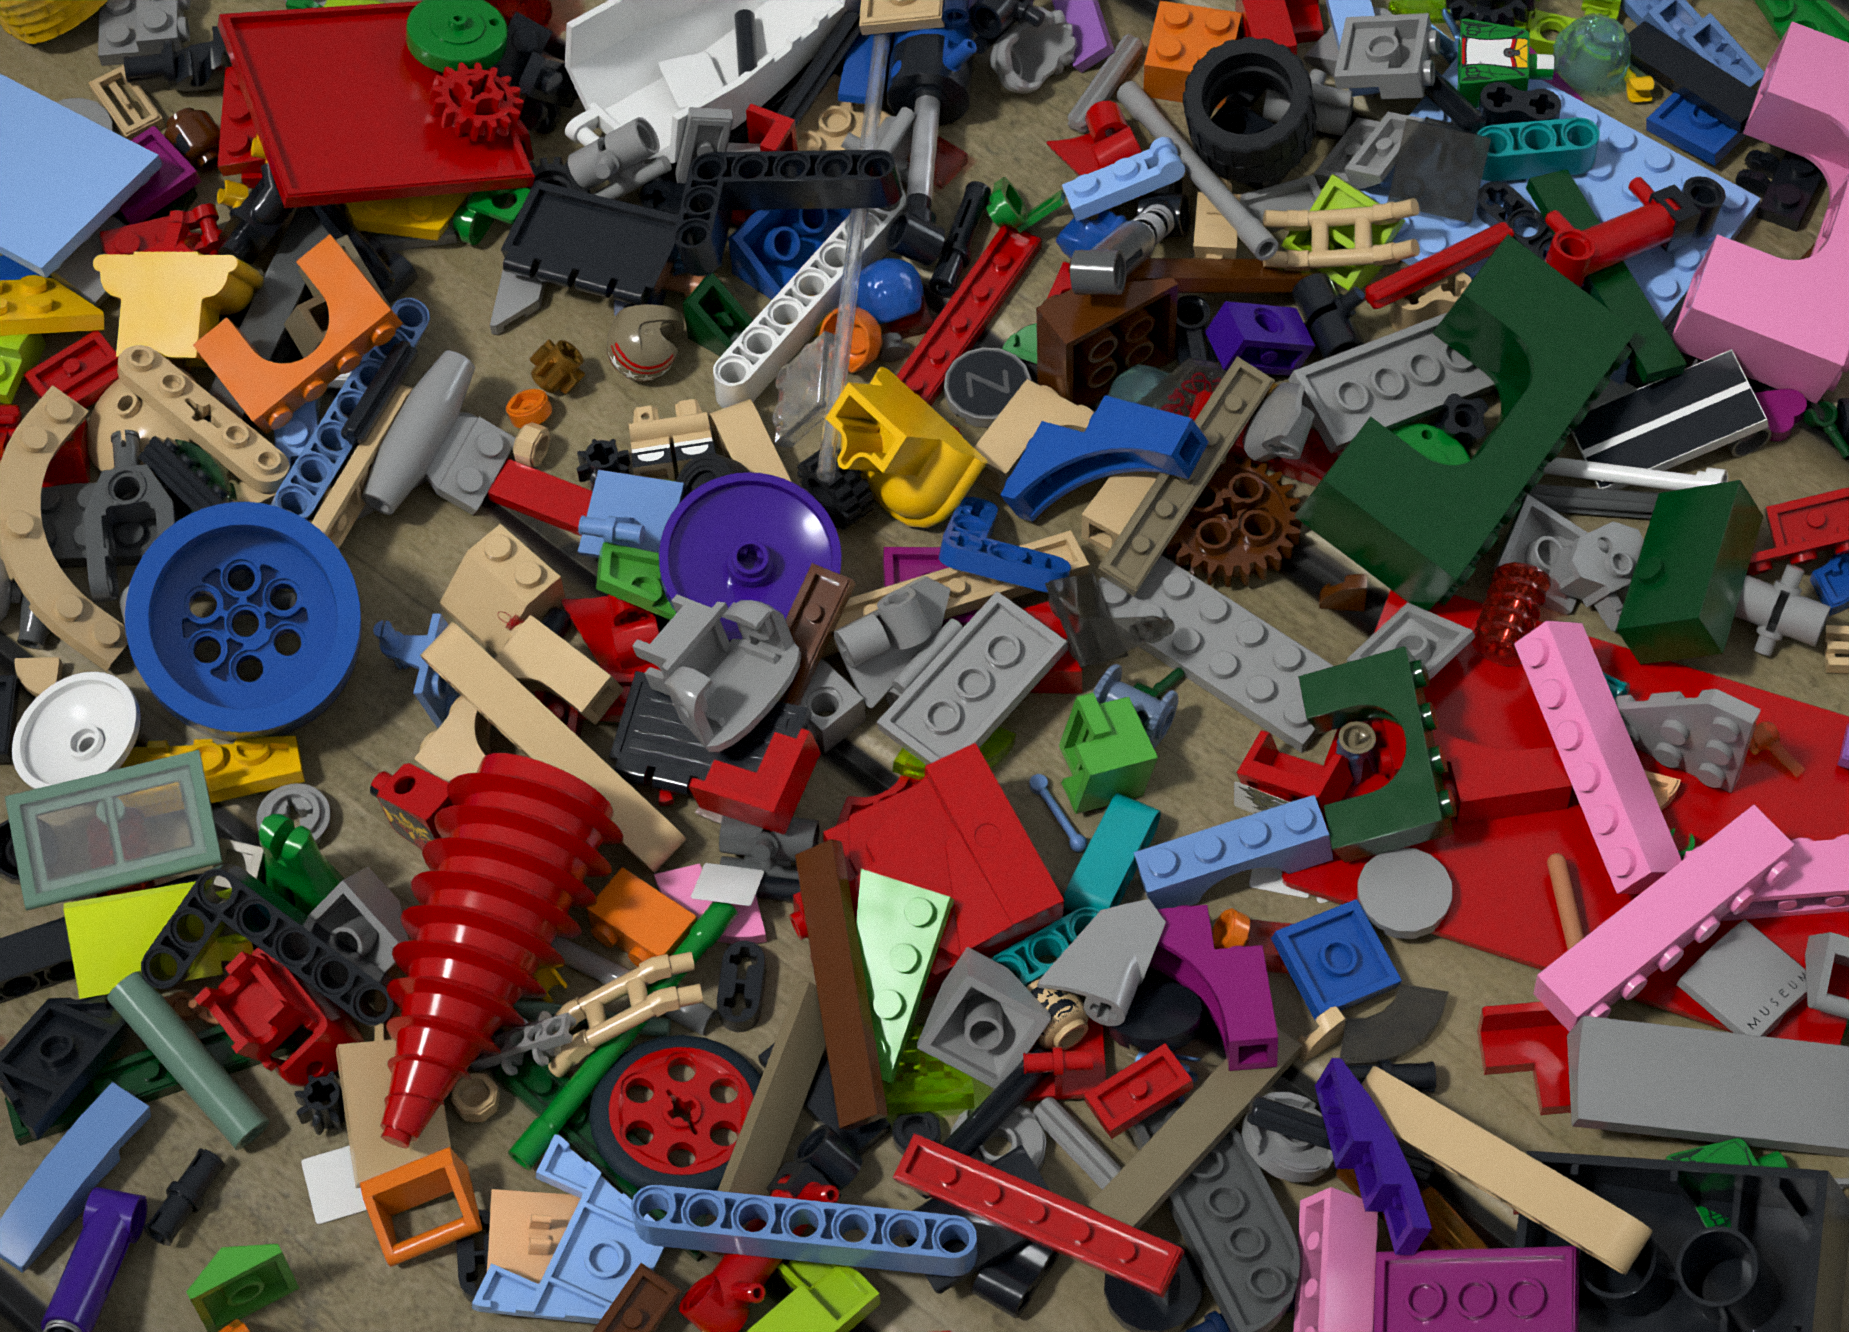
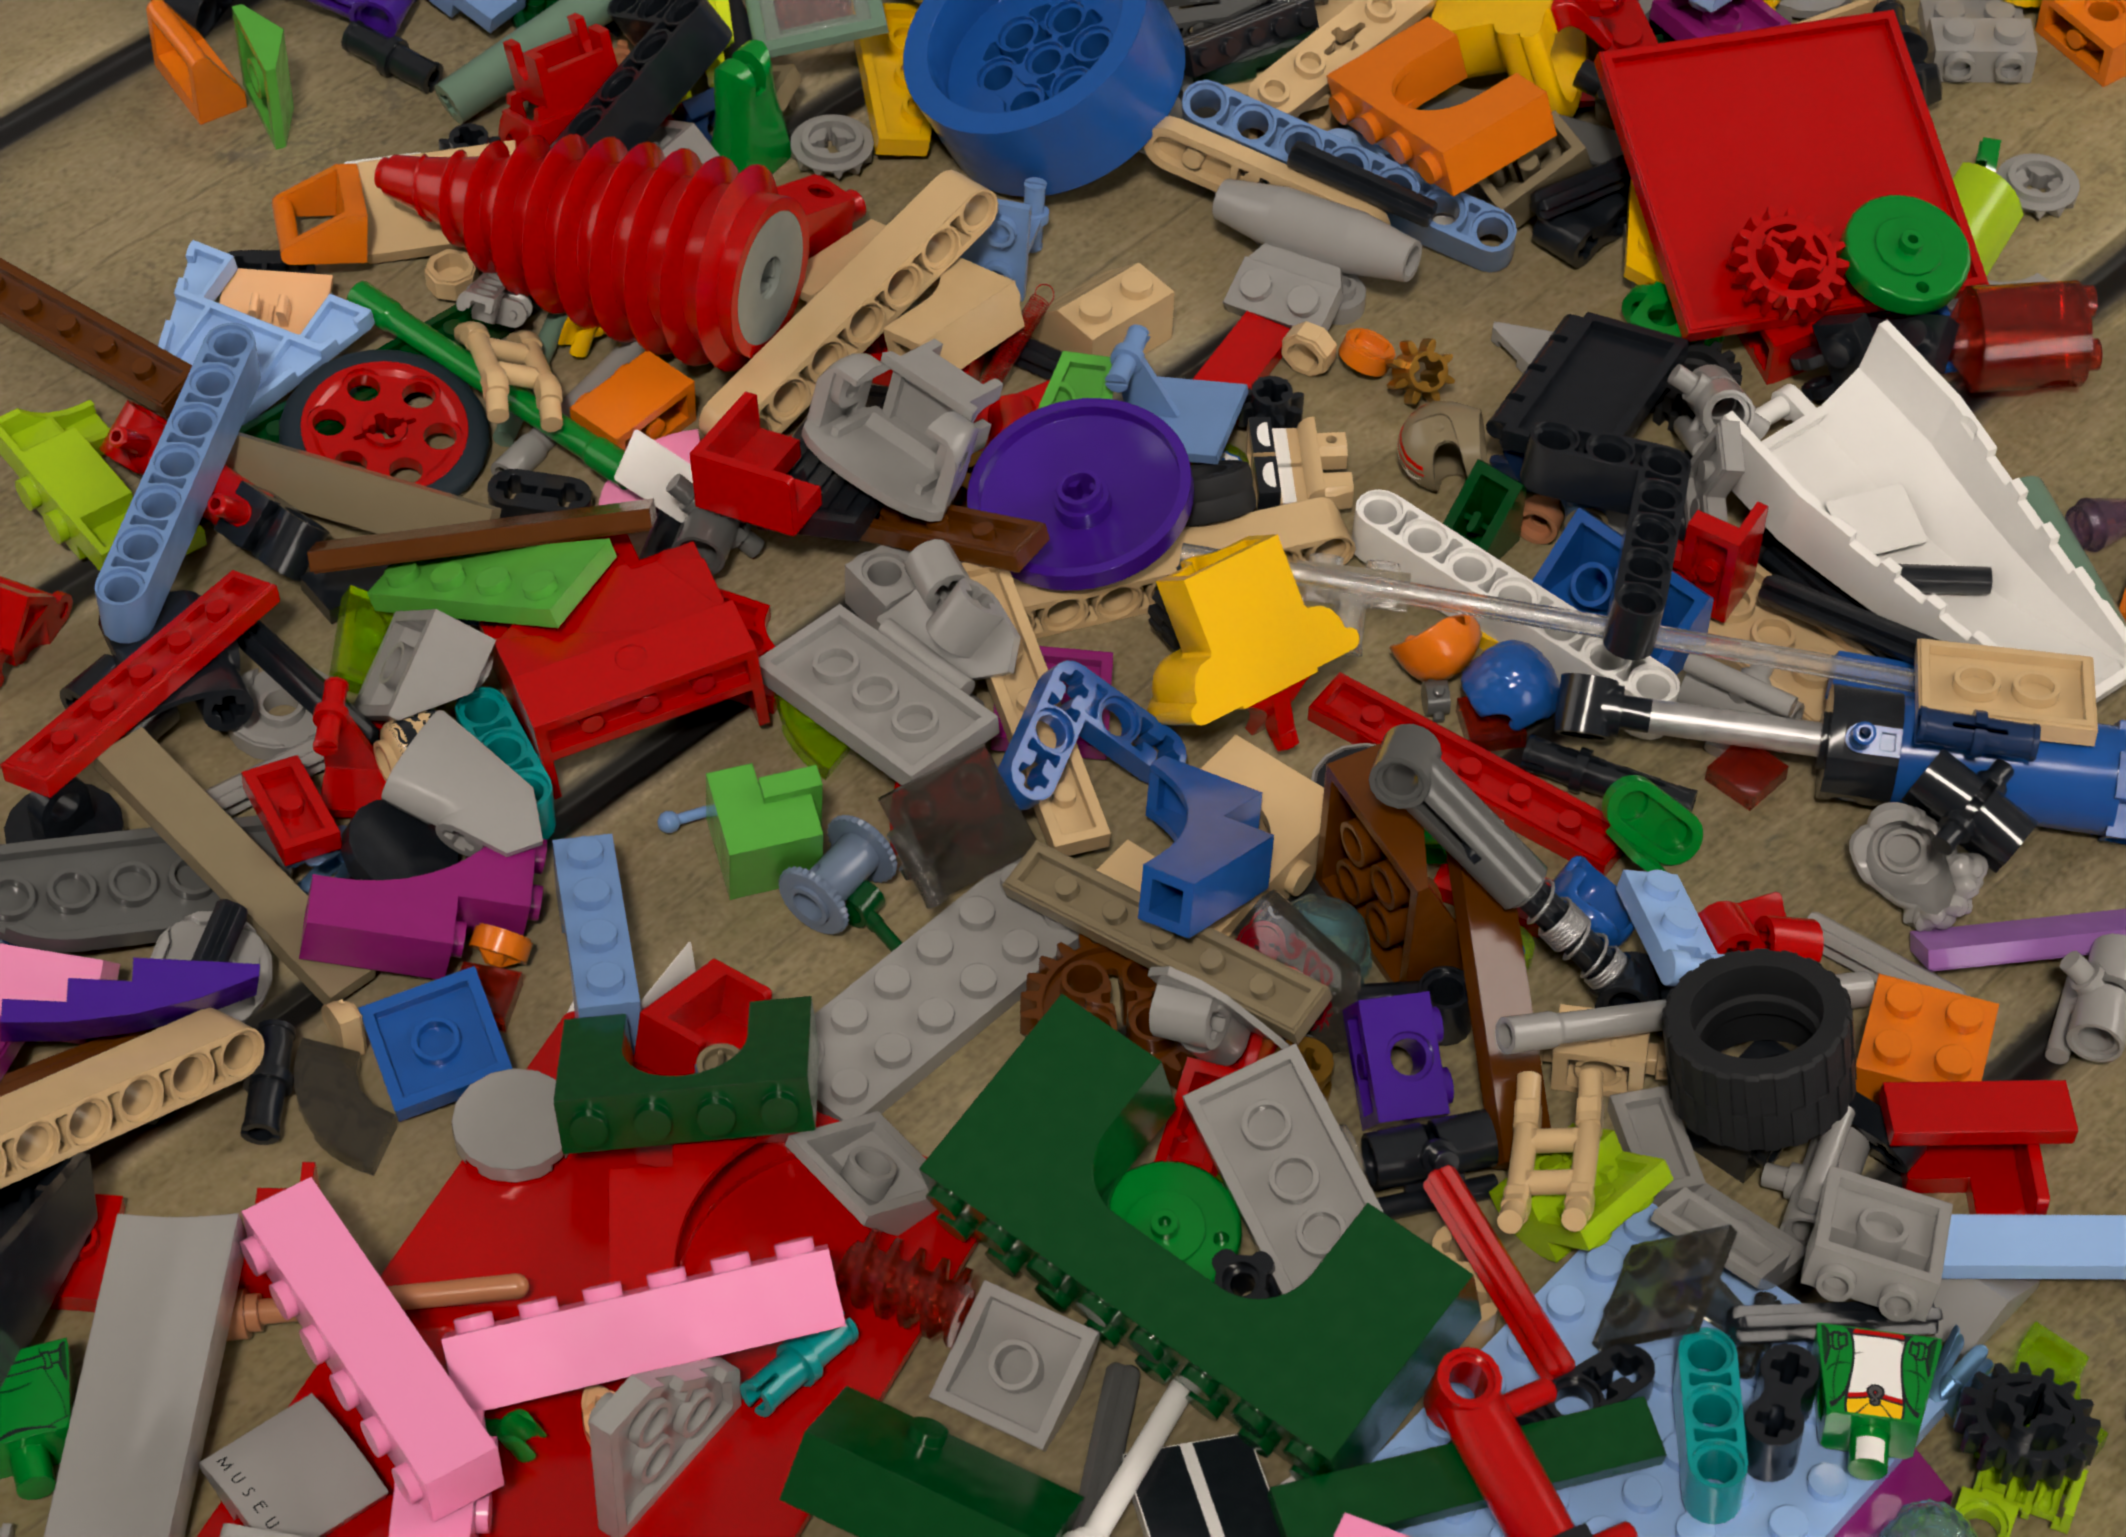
camera: 90 degrees right, 10 degrees down
(920, 1123) = (314, 639): black tile -> none
(1109, 858) = (650, 847): teal beam -> none
(1599, 569) = (960, 1399): light grey hinge -> none

